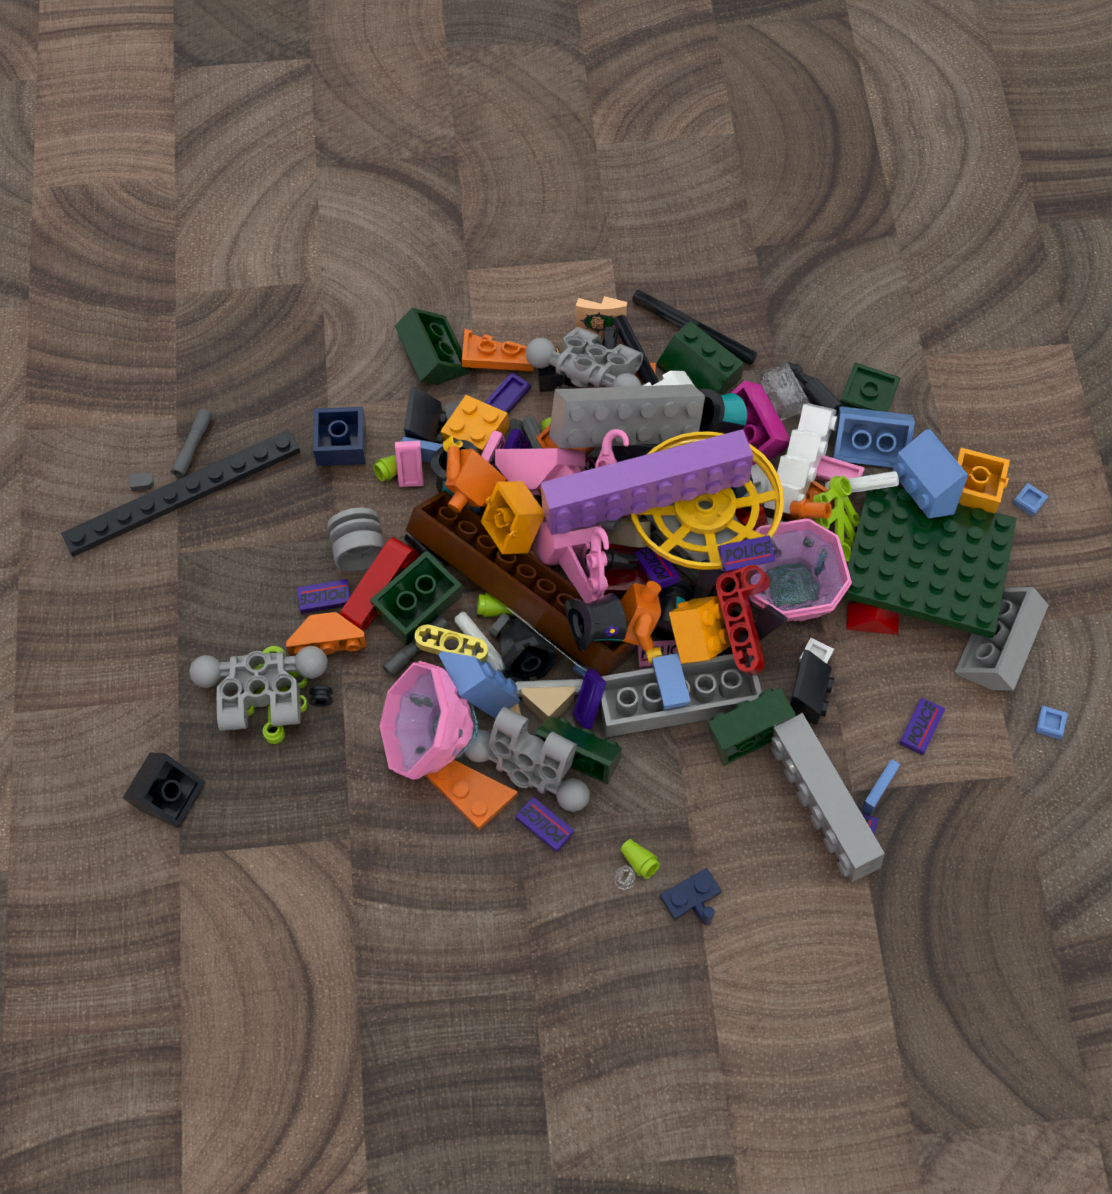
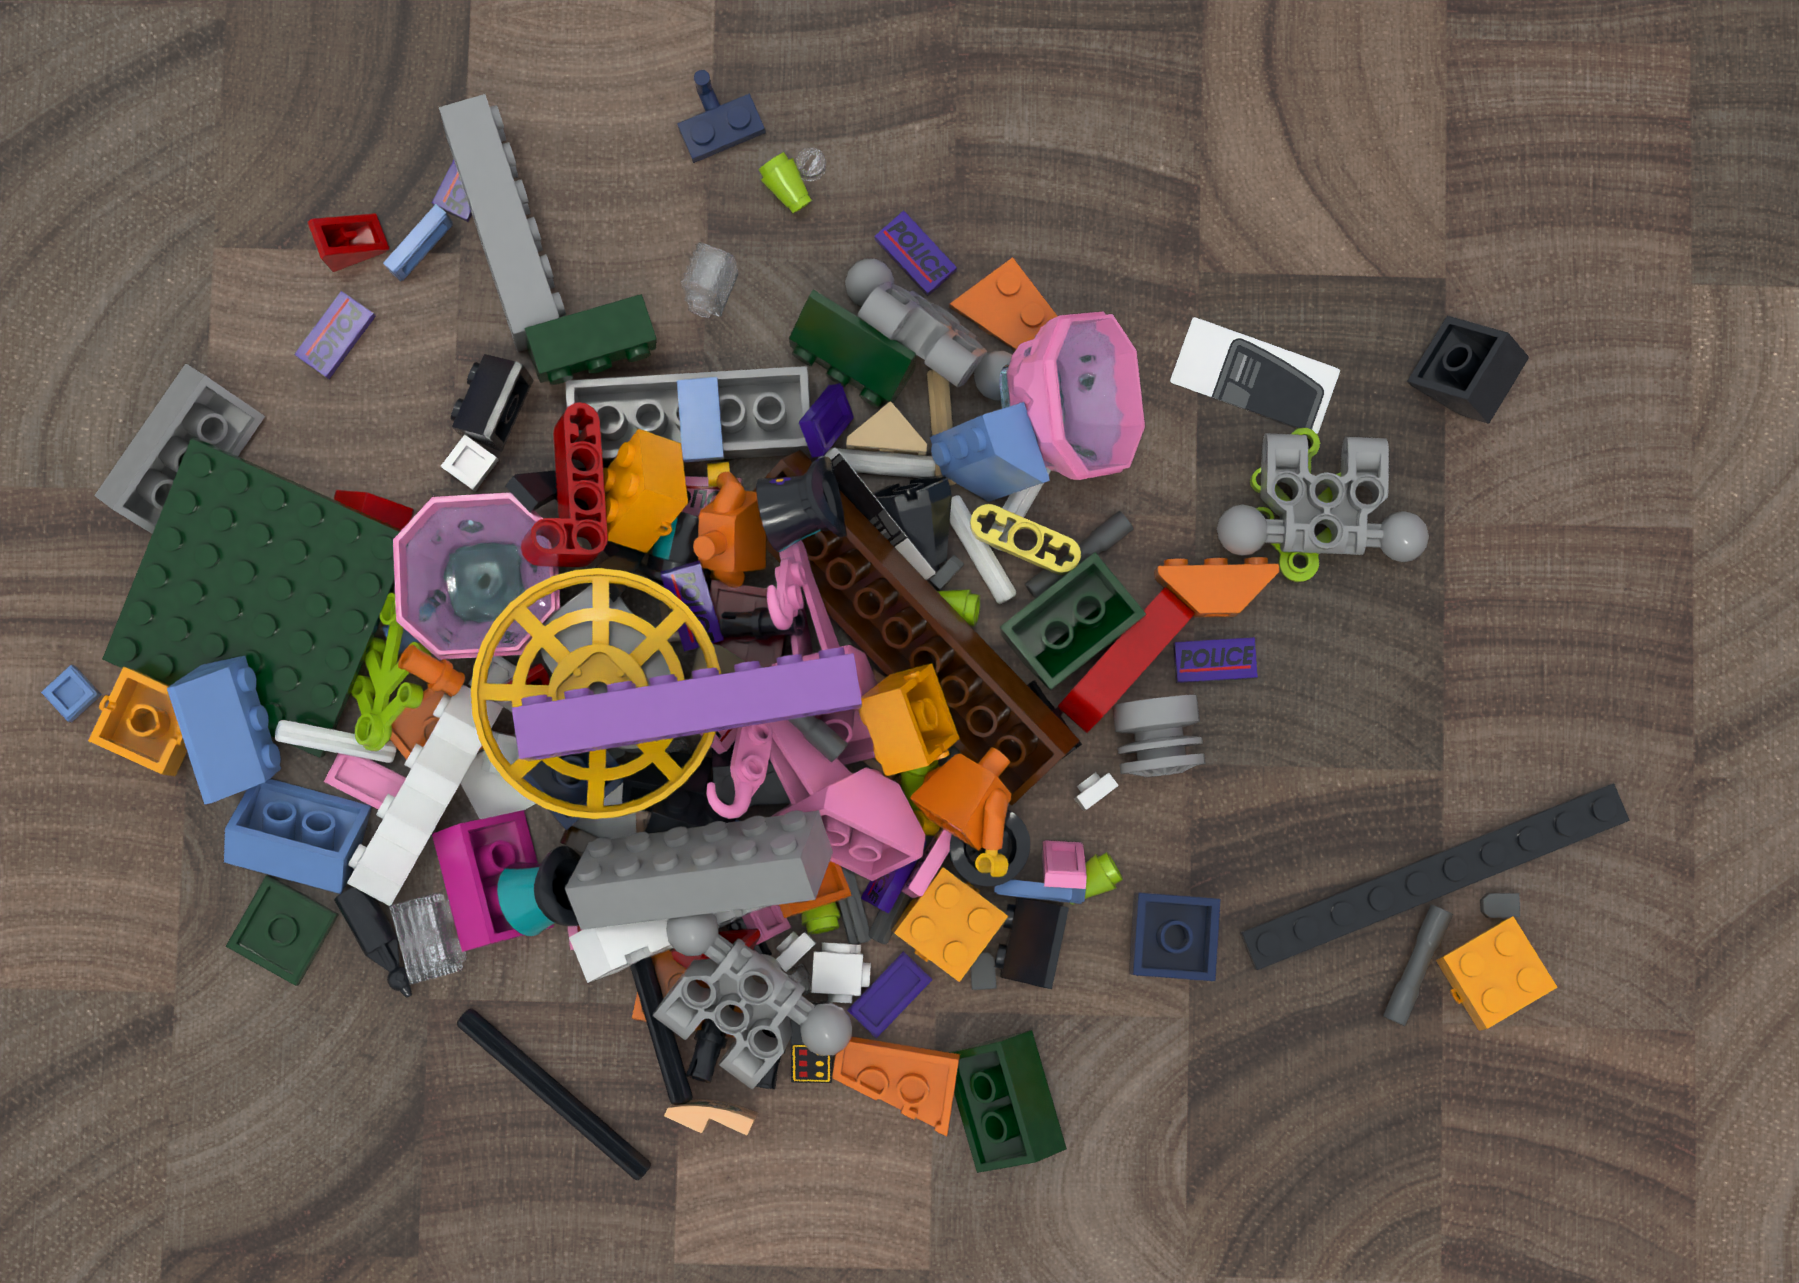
camera: 175 degrees left, 20 degrees up
(144, 438) = (1496, 974): none -> light orange brick
(308, 774) = (1255, 375): none -> sticker
(320, 696) = (1229, 488): black bush -> none
(393, 511) = (1094, 789): none -> white plate
(537, 400) = (840, 971): none -> white brick
(681, 778) = (709, 280): none -> clear brick
(702, 359) = (557, 1009): dark green slope -> none
(746, 553) = (550, 578): dark purple tile -> none
(929, 783) = (348, 239): none -> red slope
(1051, 722) = (141, 318): medium blue tile -> none

